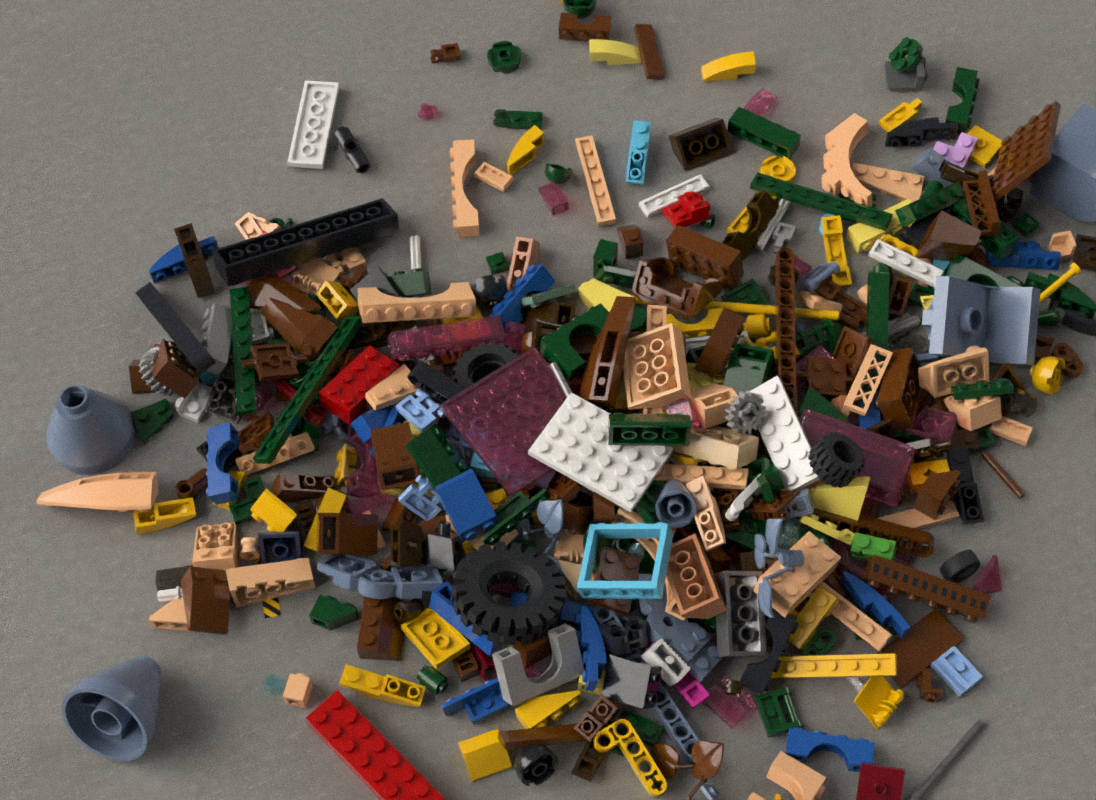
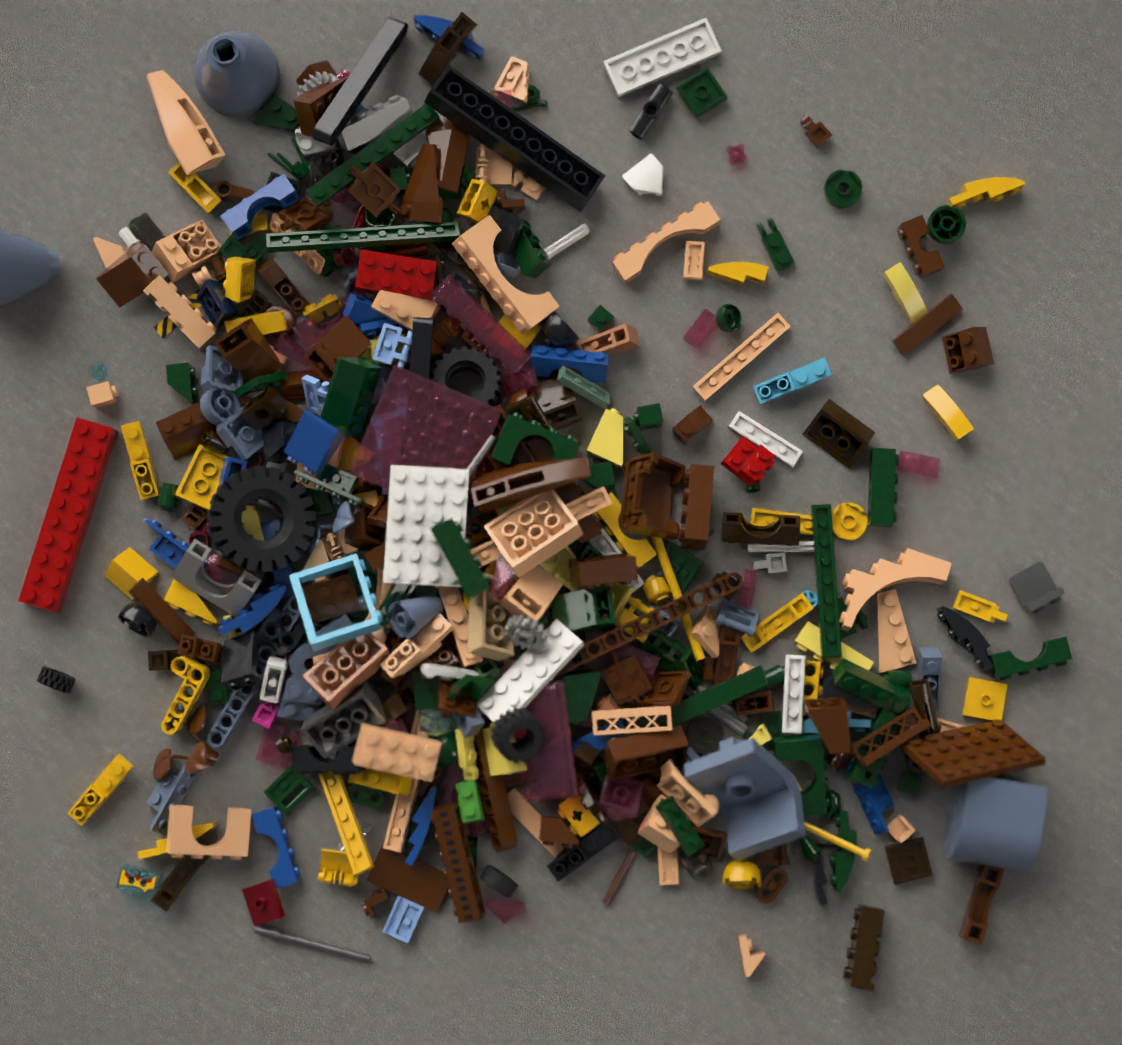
camera: 60 degrees right, 25 degrees up
(209, 421) = (298, 170): none -> dark green plant
(251, 531) = (219, 268): none -> reddish brown pin
(361, 111) = (701, 92): none -> dark green plate
(382, 535) = (260, 383): none -> dark green wing
(402, 178) = (646, 177): none -> white slope
(686, 34) = (967, 349): none -> reddish brown slope
(787, 558) = (392, 741): sand blue plant -> none
(906, 47) = (1050, 572): dark green plate -> none
(960, 152) = (957, 684): lavender plate -> none

